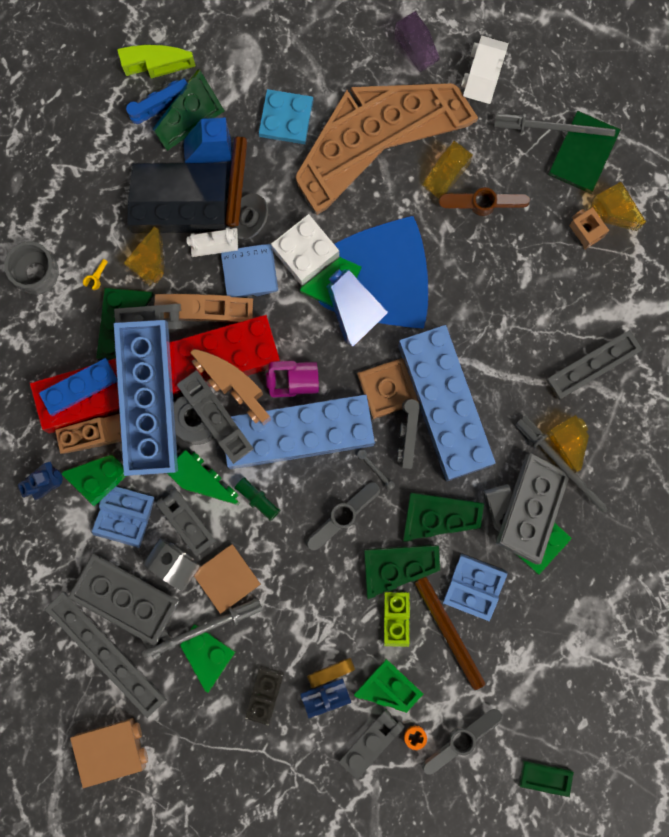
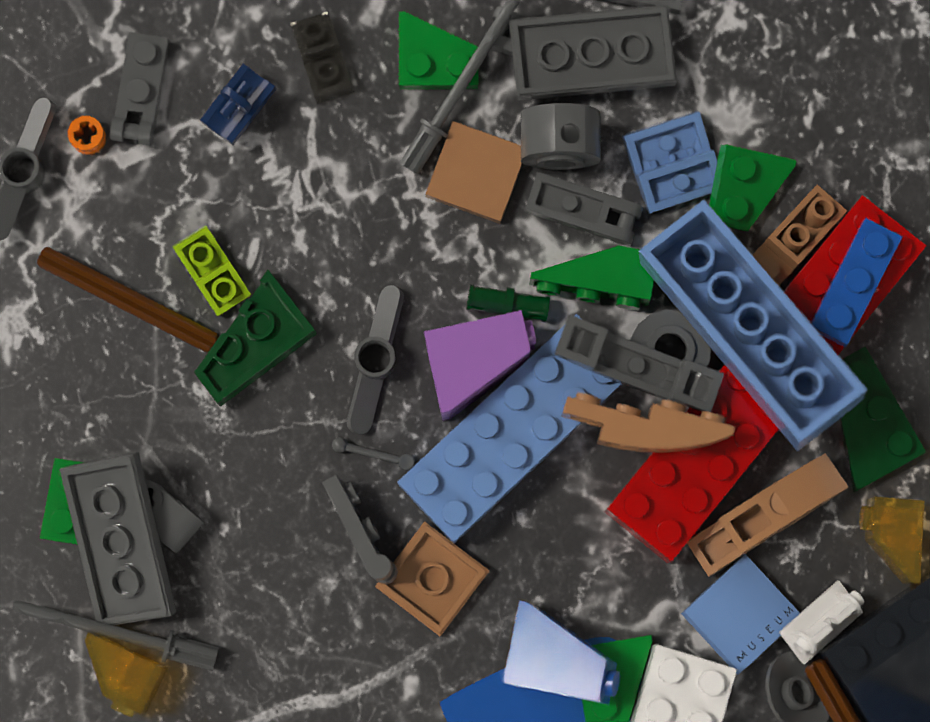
camera: 145 degrees right, 0 degrees up
(41, 481) = (814, 130): dark blue hips -> none
(150, 313) = (833, 446): dark grey plate -> none
(293, 478) = (476, 357): none -> medium lavender slope
(301, 378) = (563, 509): magenta piece -> none
(331, 672) = (253, 142): pearl gold beam -> none
(389, 688) = (162, 175): green wing -> none
(440, 515) = (244, 448): dark green wing -> none
(446, 403) = (334, 609): medium blue brick -> none
(475, 587) = (132, 383): medium blue slope -> none

